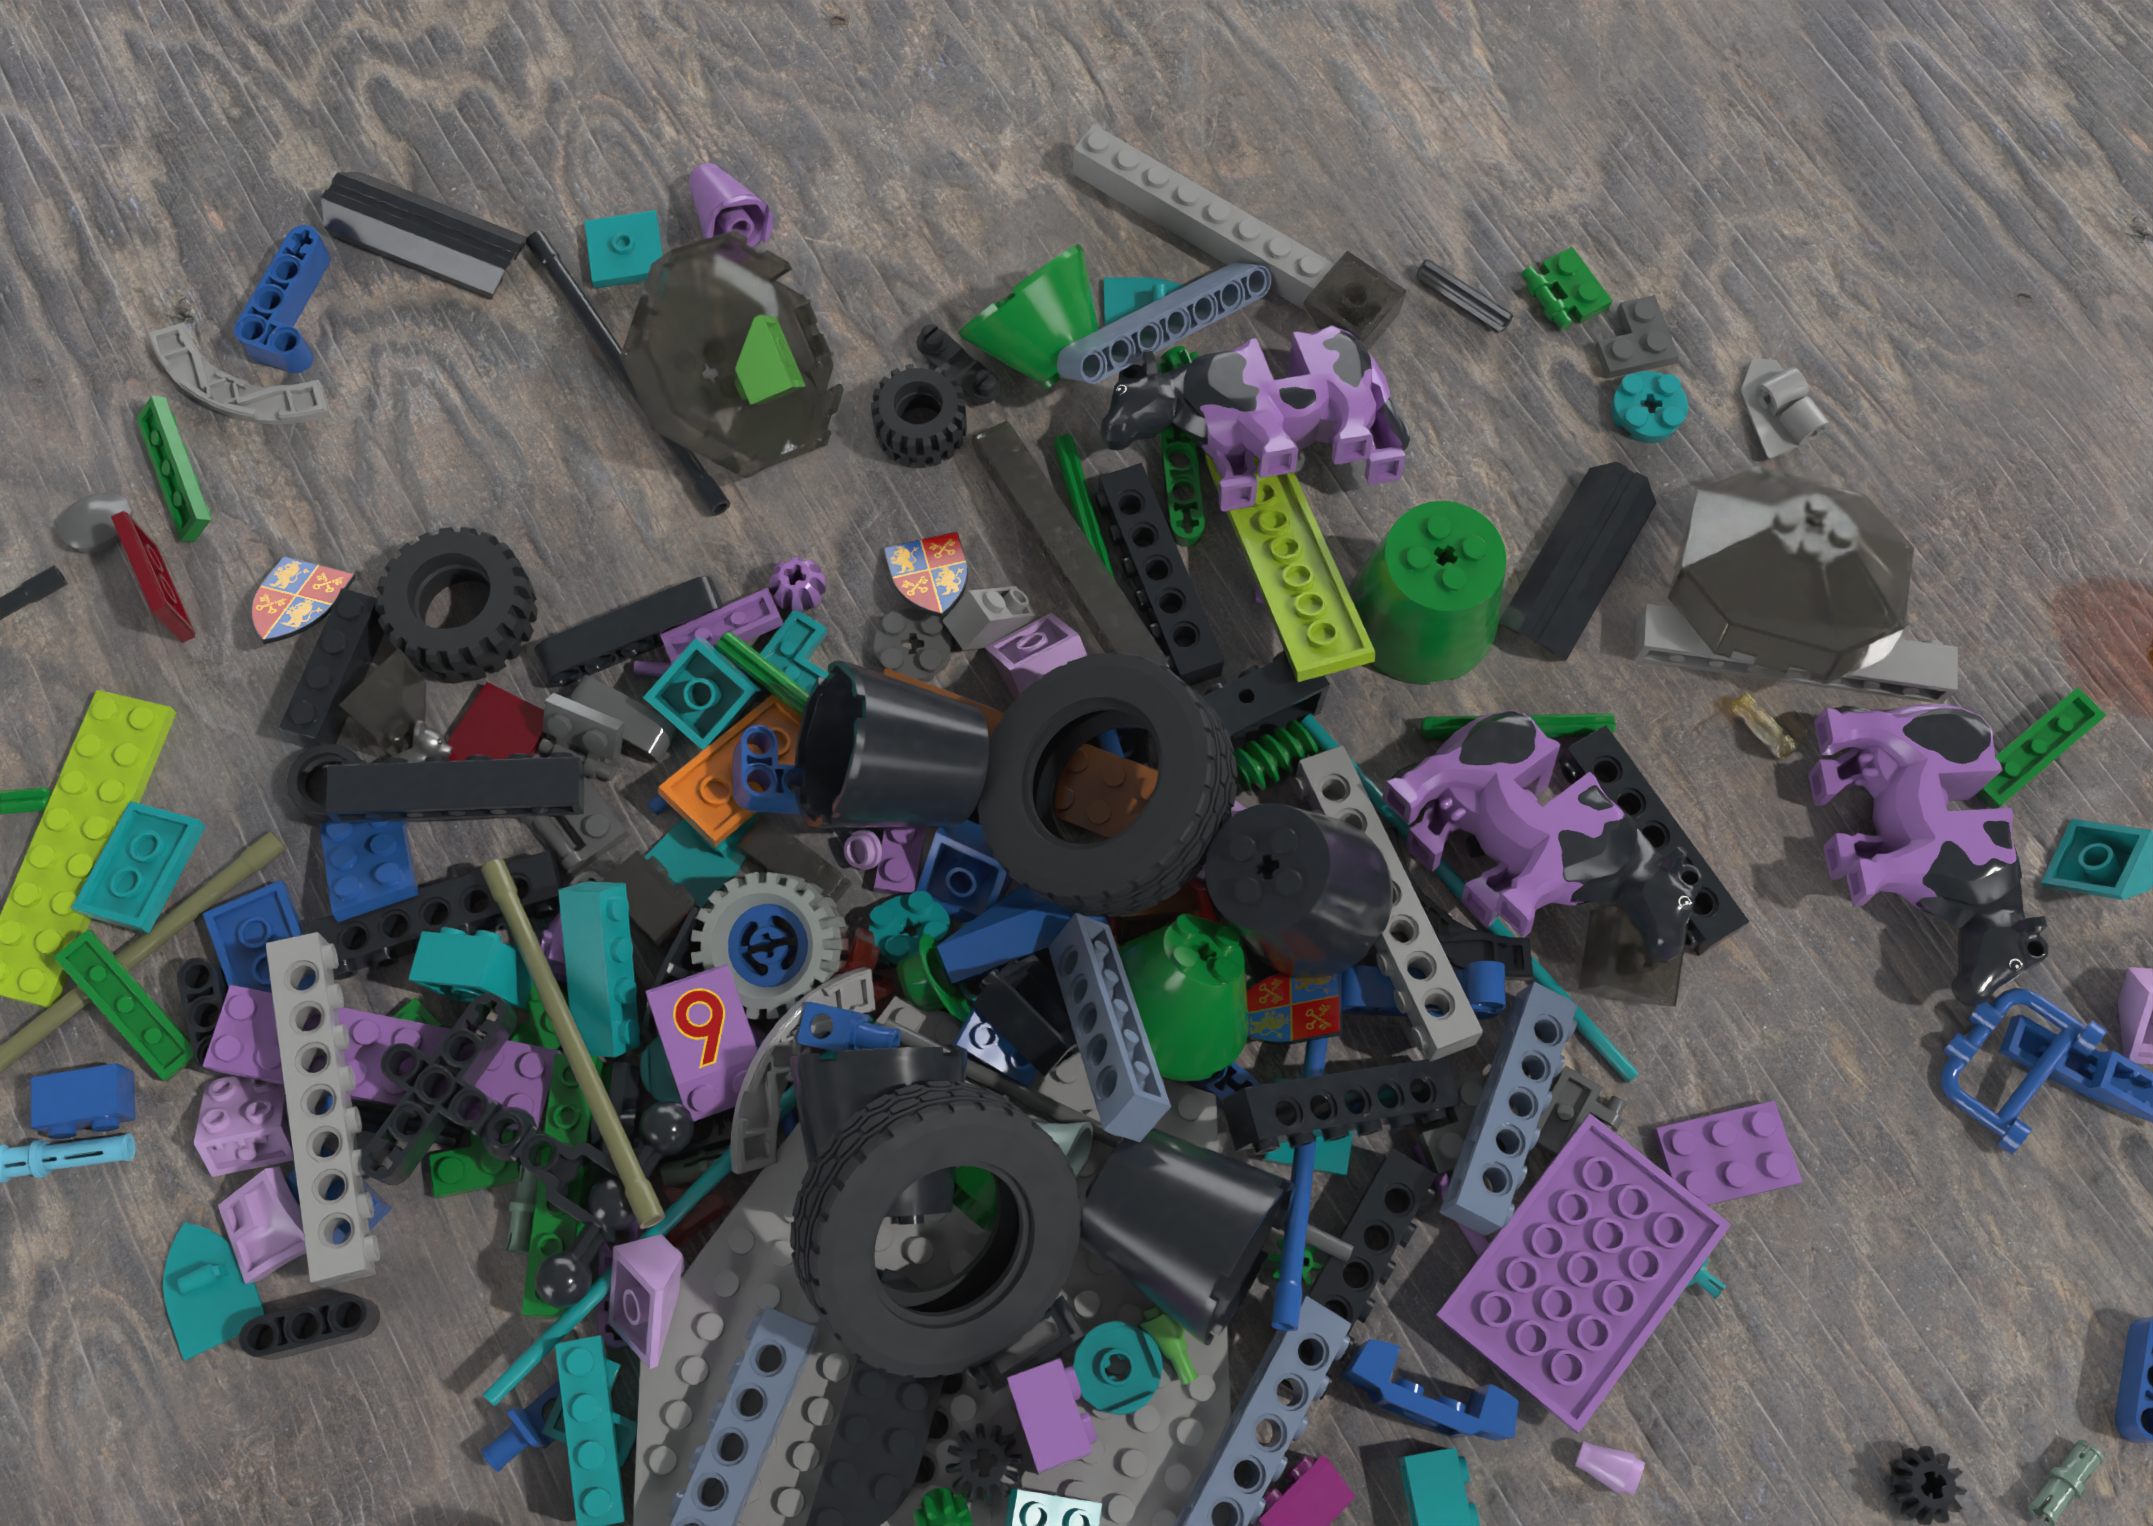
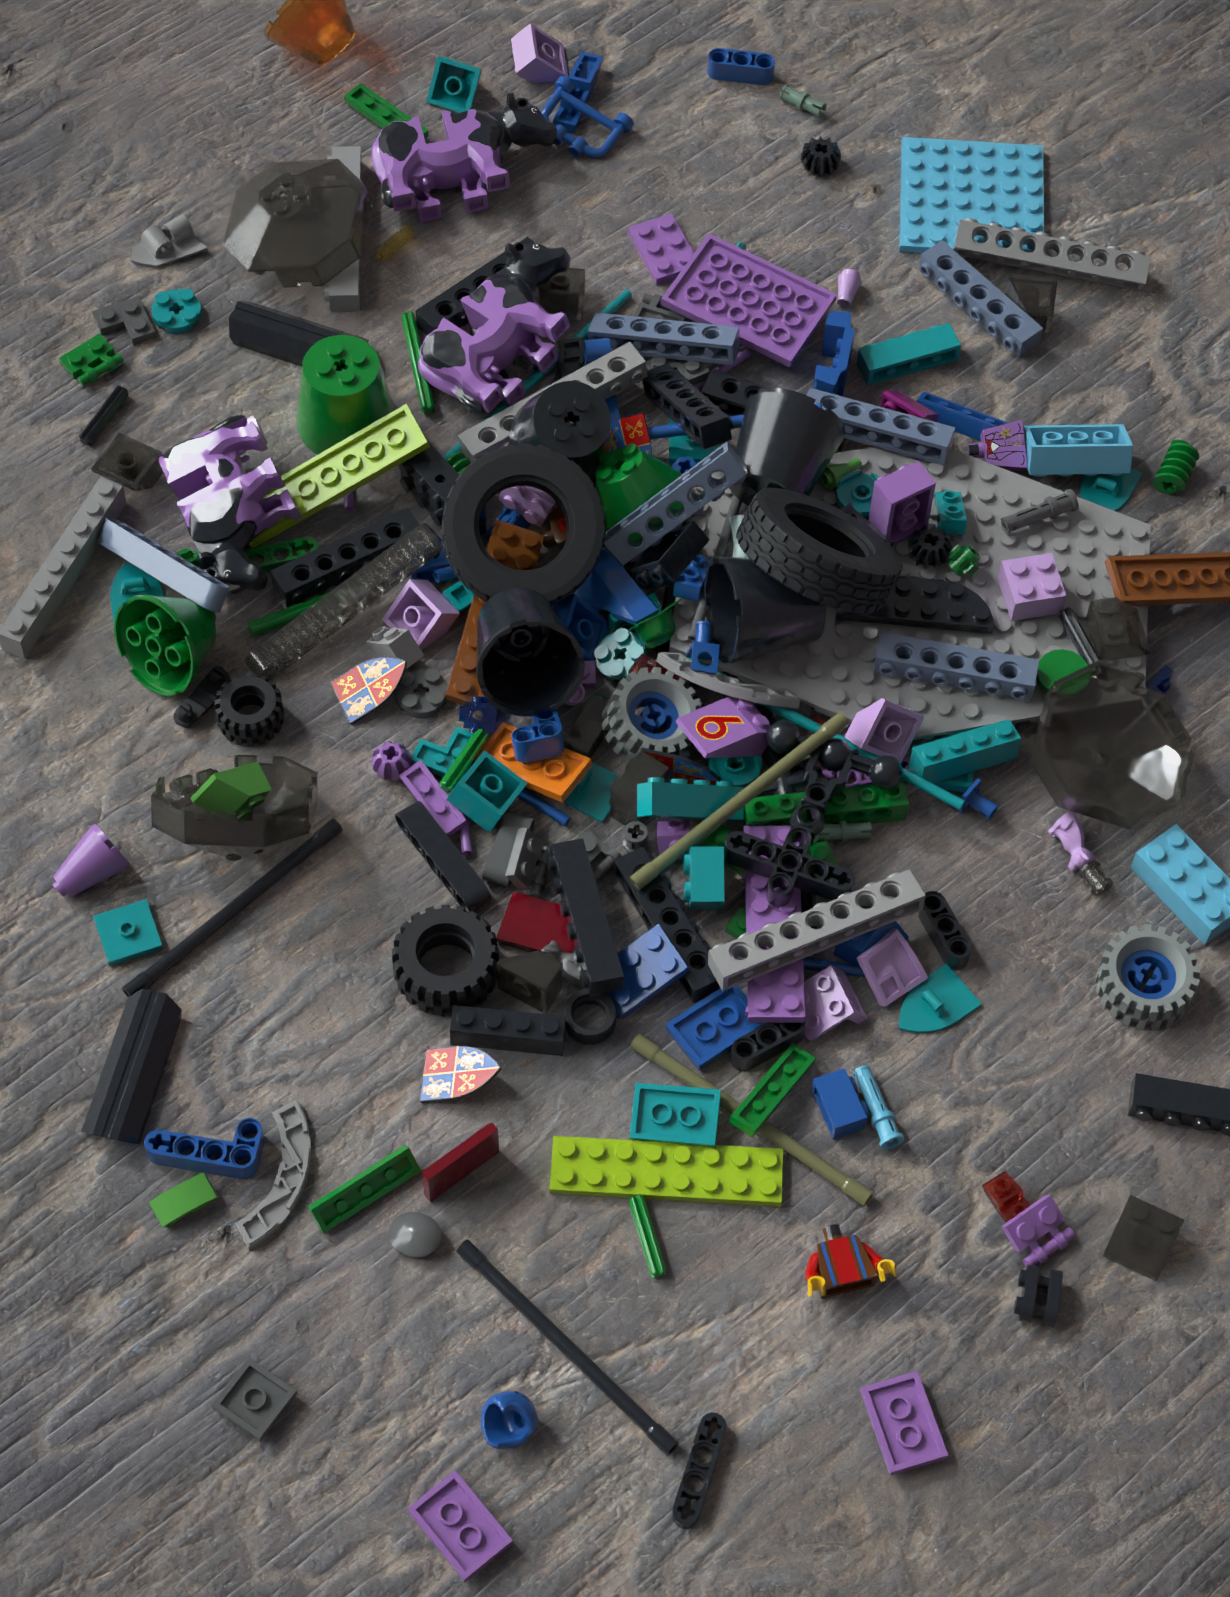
camera: 100 degrees left, 10 degrees down
(228, 269) = (183, 1199): none -> bright green slope

